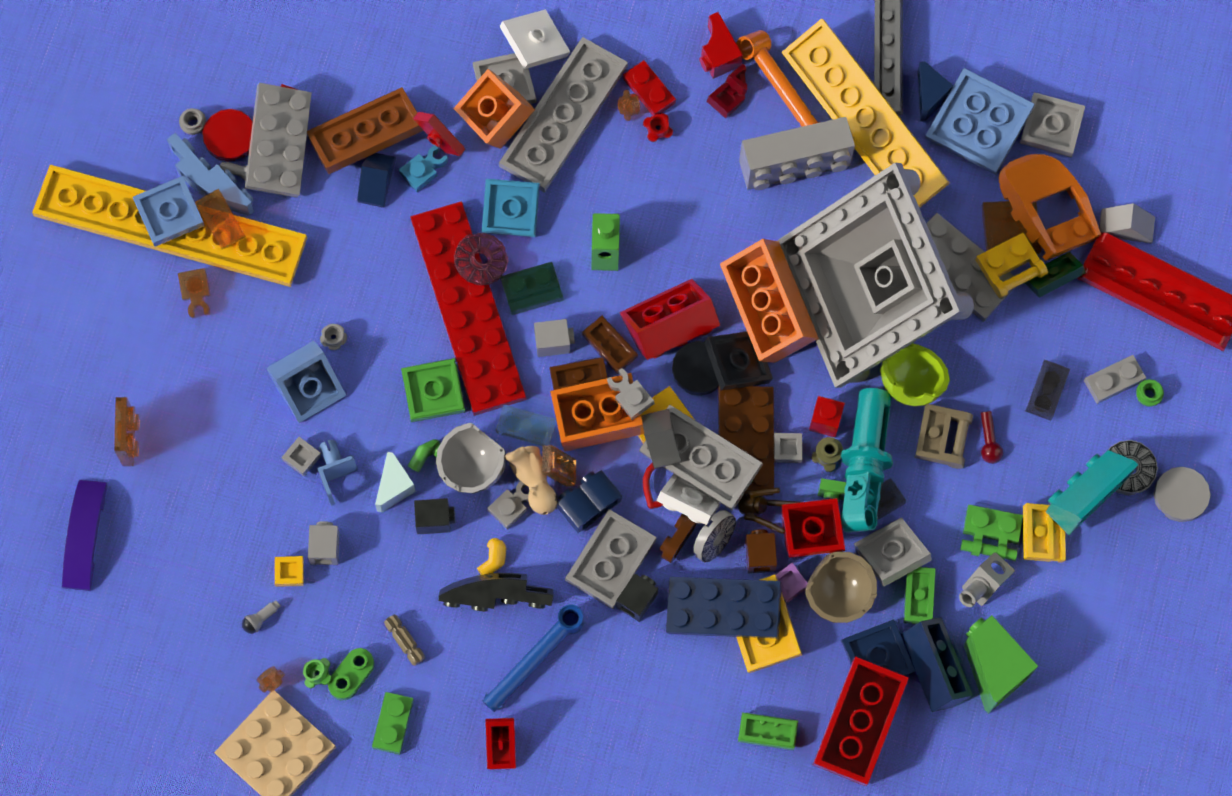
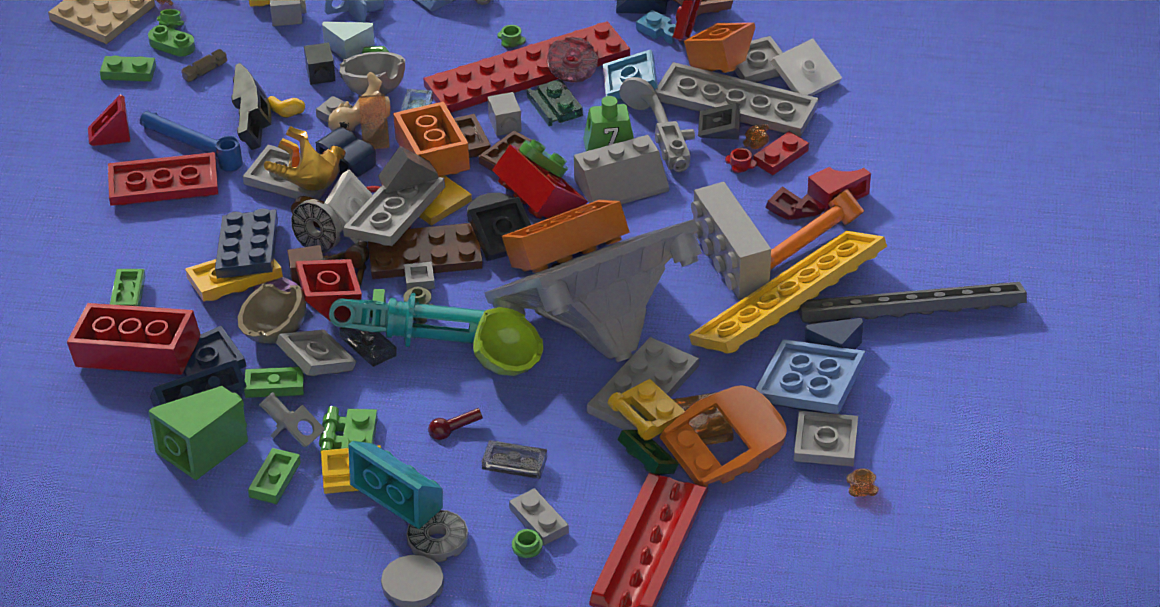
camera: 85 degrees right, 30 degrees down
(409, 311) = (511, 36): none -> bright green plate
(433, 390) = (440, 52): bright green plate -> none
(597, 690) = (162, 179): none -> red plate
(608, 131) = (720, 122): none -> dark grey slope
(615, 185) = (641, 95): none -> light grey piece
(632, 397) = (442, 143): light grey plate -> none
(637, 596) = (254, 191): pearl dark grey brick -> none
(638, 536) = (308, 167): none -> pearl gold piece
(641, 307) = (535, 151): none -> bright green plate
(666, 240) = (621, 171): none -> light grey slope
(826, 416) = (454, 290): red brick -> none
(935, 432) = (449, 378): dark tan plate -> none
(1044, 603) = (274, 476): none -> bright green plate
(1107, 99) = (862, 483): none -> clear orange plate
(1128, 223) = (724, 515): light grey slope -> none

